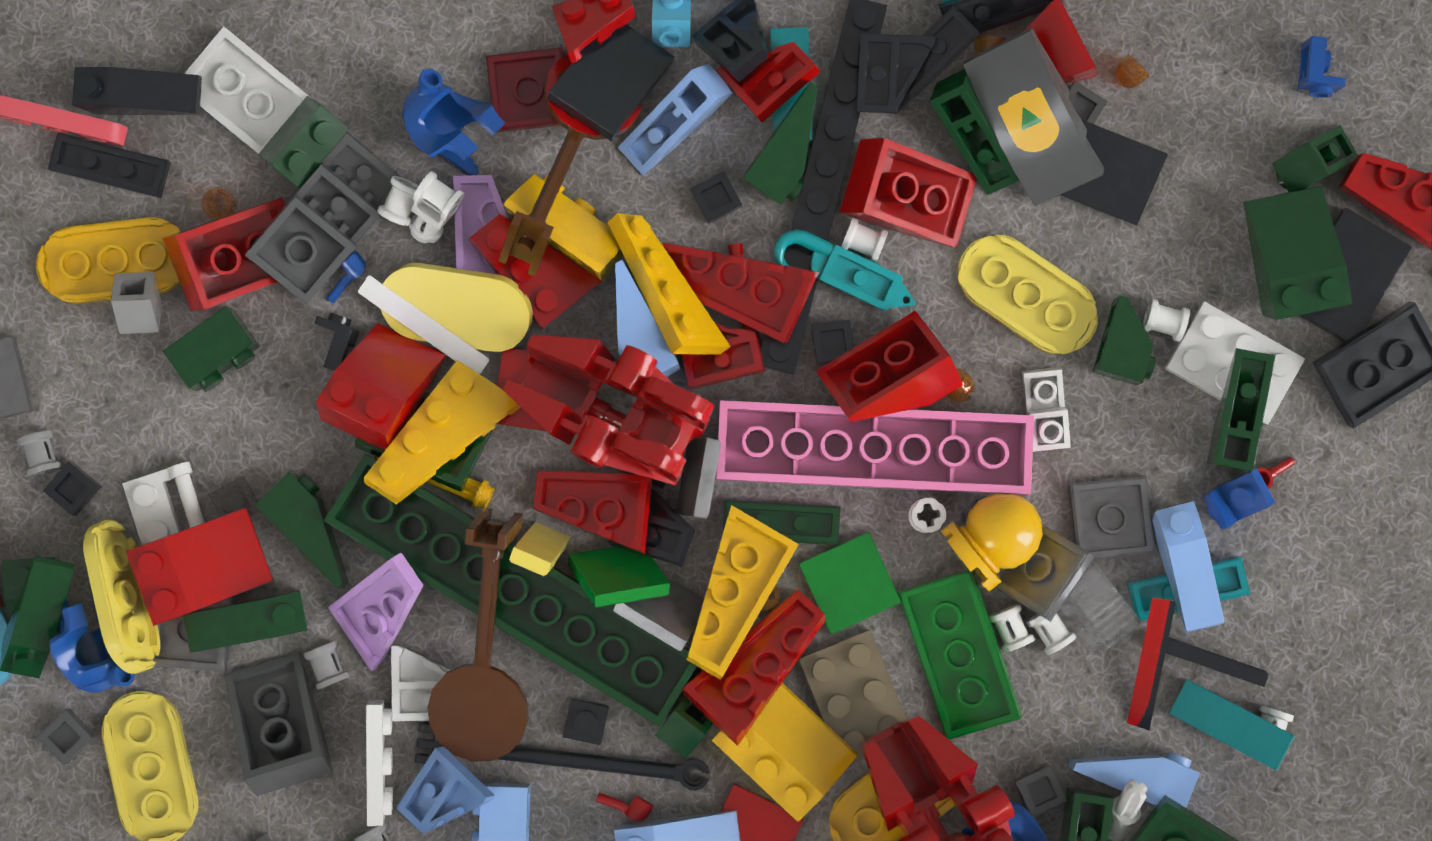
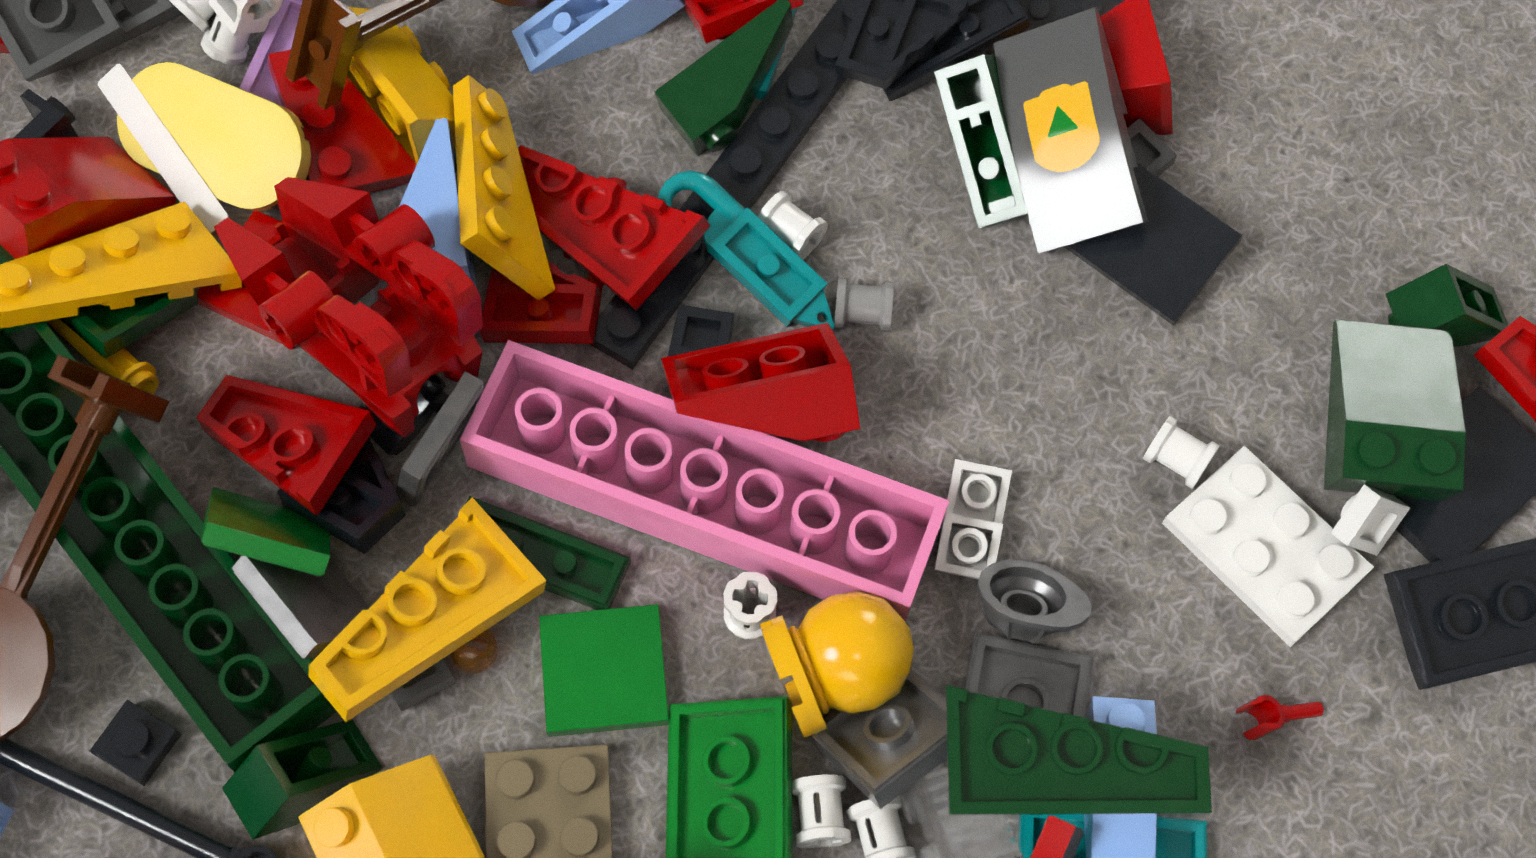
camera: 15 degrees right, 20 degrees down
(354, 267) = (107, 56): blue hand -> none
(539, 549) = (166, 452): light yellow tile -> none
(716, 197) = (613, 119): black plate -> none
(757, 667) = (410, 730): red wing -> none
(908, 192) = (872, 185): red slope -> none
(931, 282) = (864, 304): none -> light grey bush
(962, 394) = (859, 449): clear orange hinge -> none
(1027, 294) = (995, 366): light yellow tile -> none
(1100, 454) = (1031, 600): none -> flat silver piece
(1124, 346) = (1111, 468): dark green slope -> none
(1130, 73) = (1218, 137): clear orange hinge -> none
(1146, 567) = (1057, 763): none -> dark green wing
(1238, 498) = (1231, 727): blue bracket -> none
(1241, 411) = (1260, 599): dark green slope -> none
(1295, 332) = (1369, 519): none -> white plate
(1313, 64) = (1472, 209): blue bracket -> none

